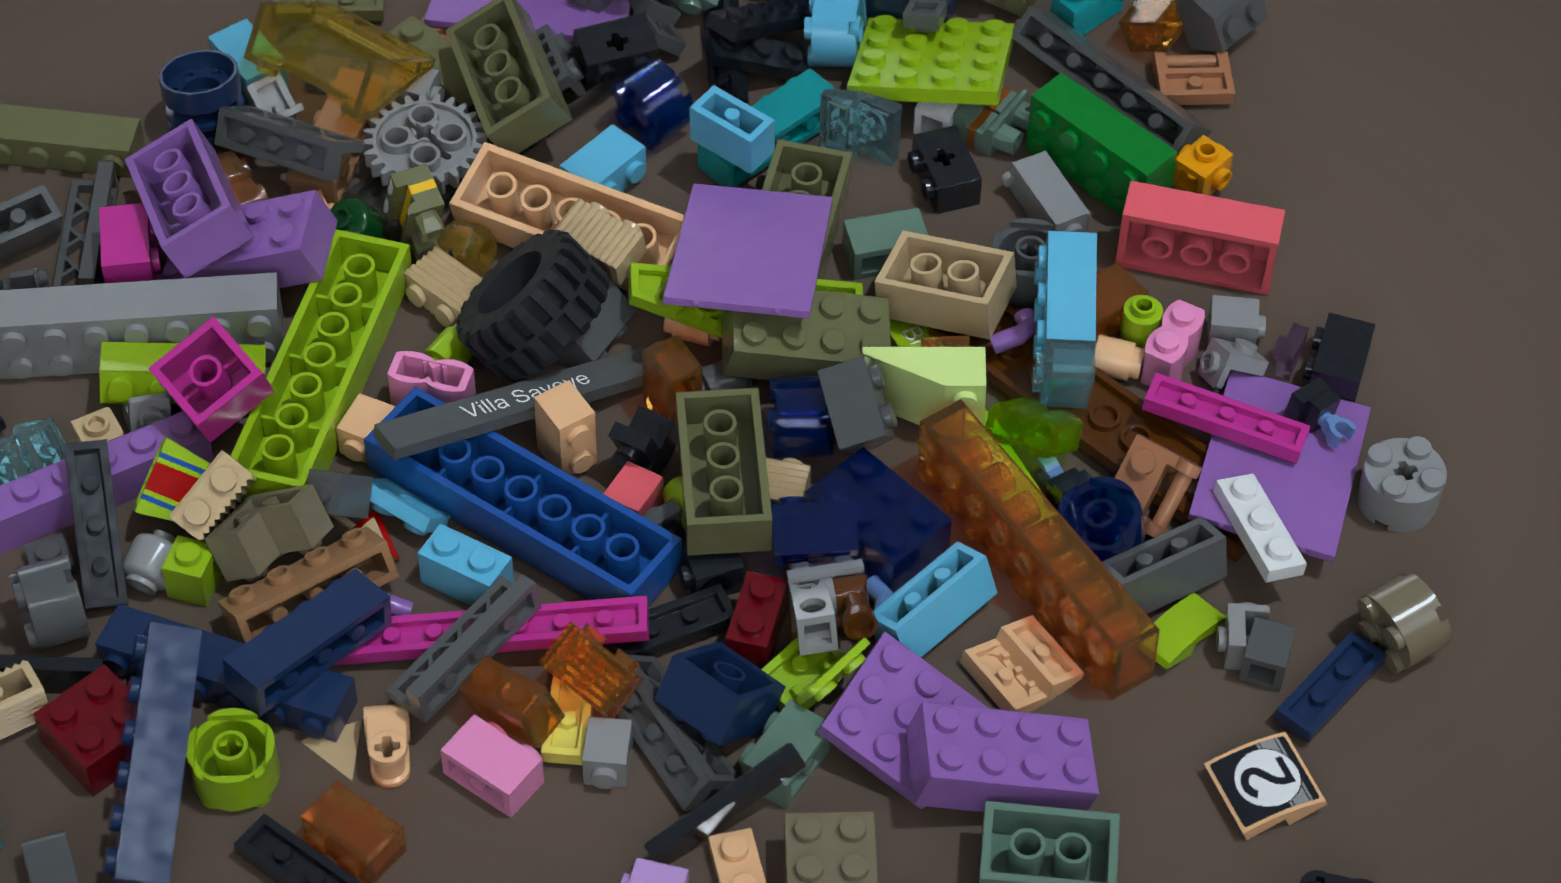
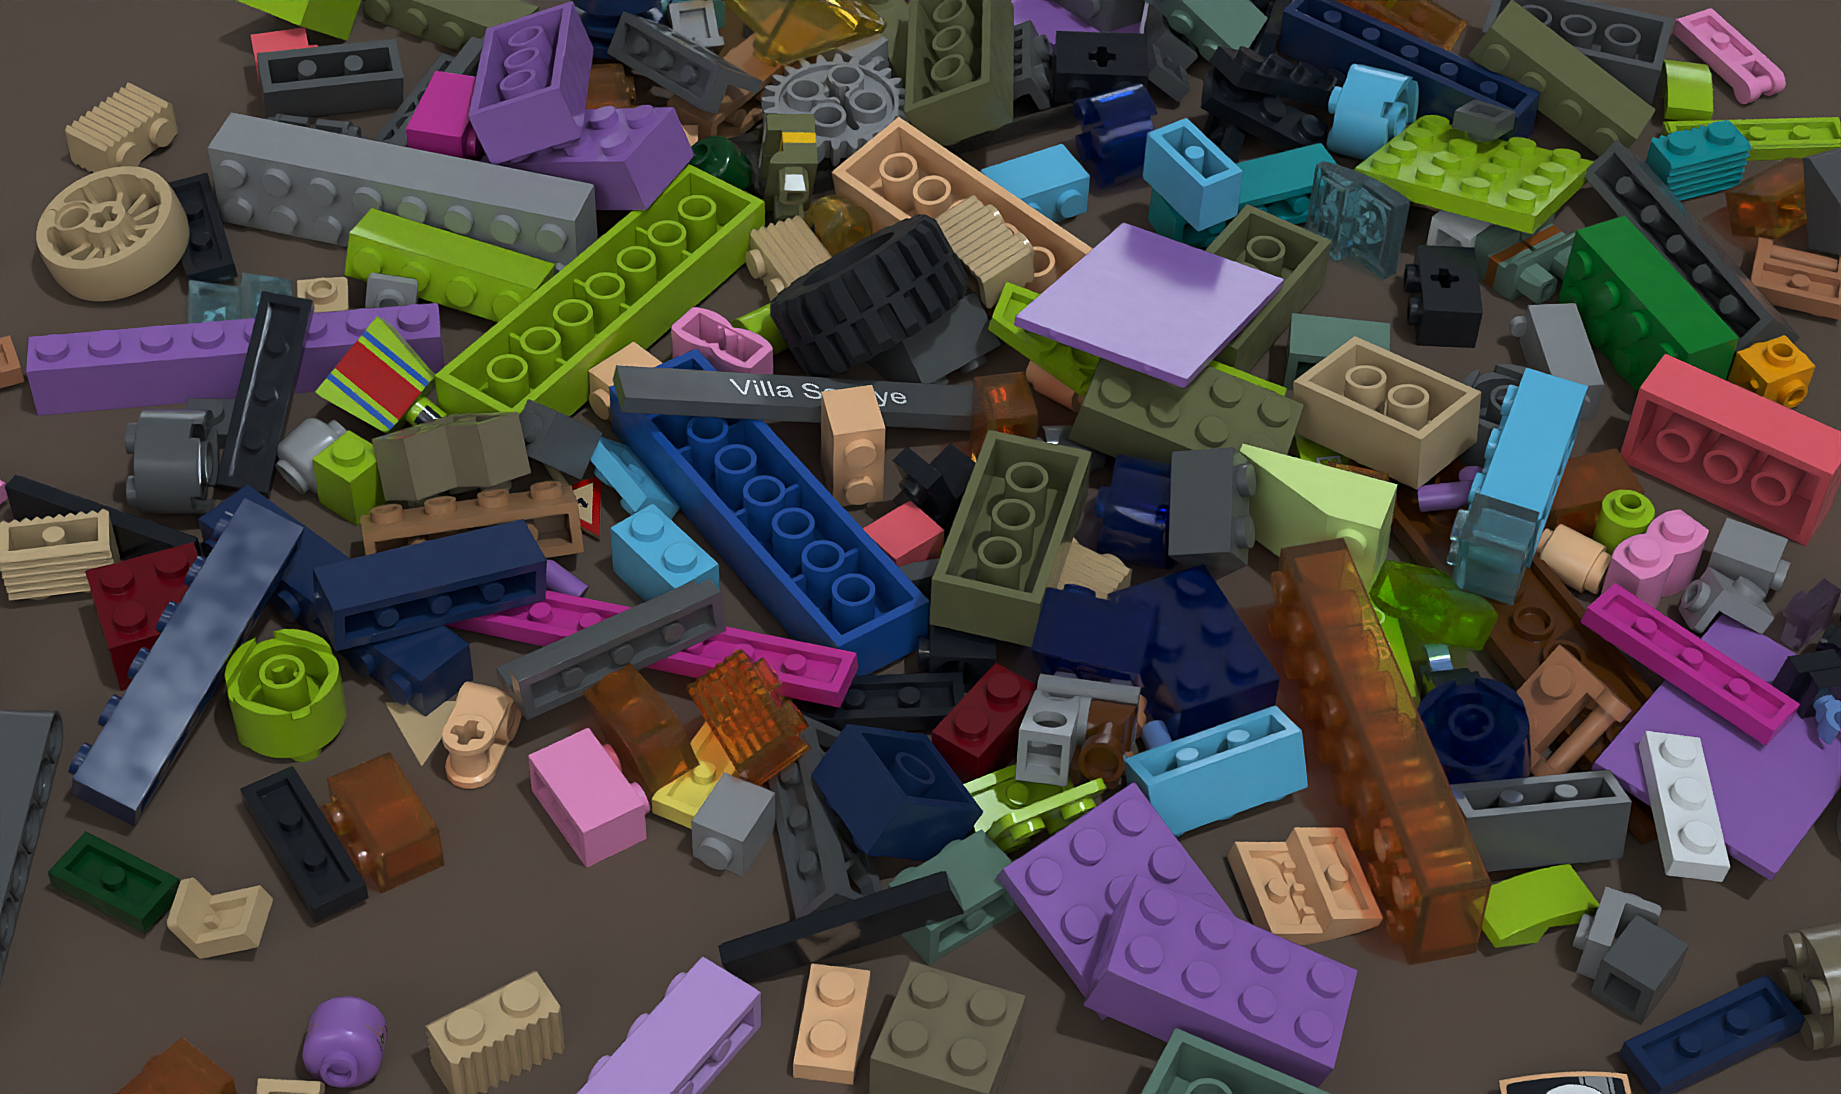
camera: 20 degrees right, 5 degrees down
(211, 379) = (458, 270): dark pink piece -> none
(213, 496) = (404, 394): tan brick -> none

